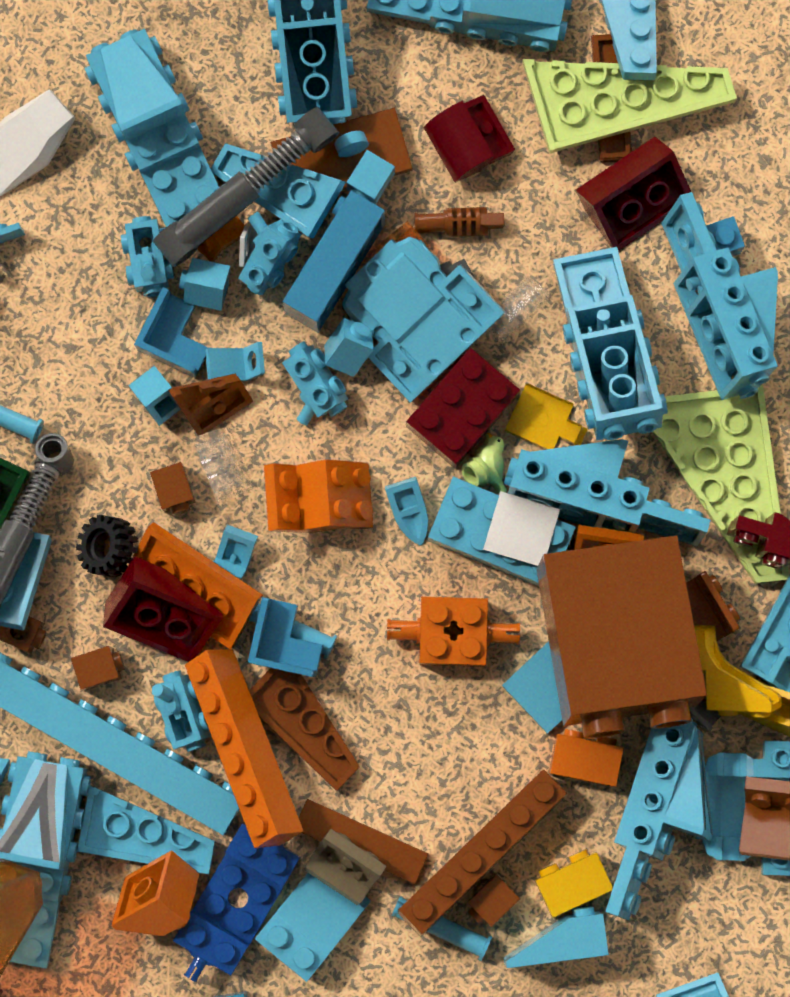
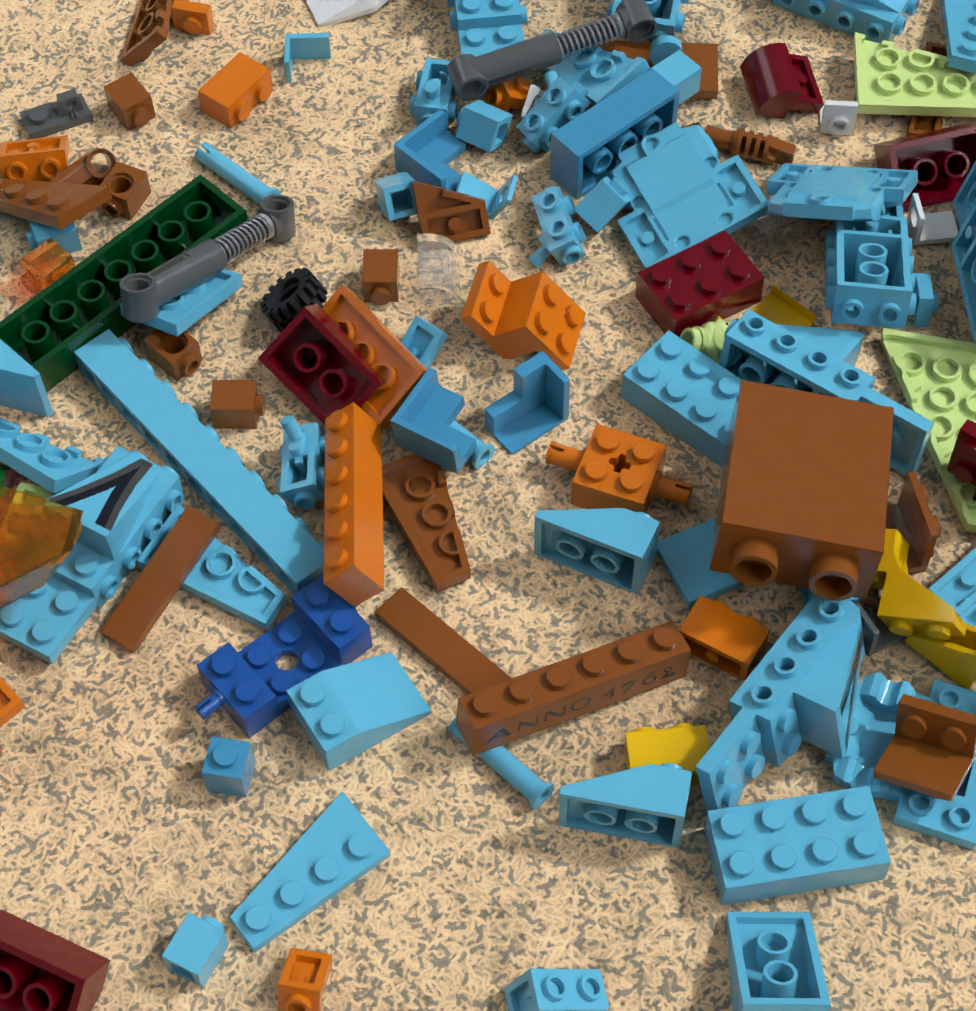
camera: 20 degrees right, 25 degrees down
(106, 864) = (161, 579): none -> dark orange tile
(157, 897) = (203, 619): orange slope -> none
(344, 866) = (417, 656): dark tan bracket -> none
(354, 591) = (533, 406): none -> dark azure panel
(409, 508) = (612, 358): medium azure plate -> none
(473, 711) = (601, 543): none -> medium azure slope
(491, 901) = (568, 746): dark orange brick -> none
(521, 528) = (717, 385): white sticker -> none
(532, 169) = (838, 117): none -> white bracket
(559, 276) = (837, 191): none -> medium azure piece
(650, 264) = (929, 227): none -> white bracket
(665, 358) = (927, 300): none -> medium azure bracket
(694, 927) = (796, 845): none -> medium azure brick

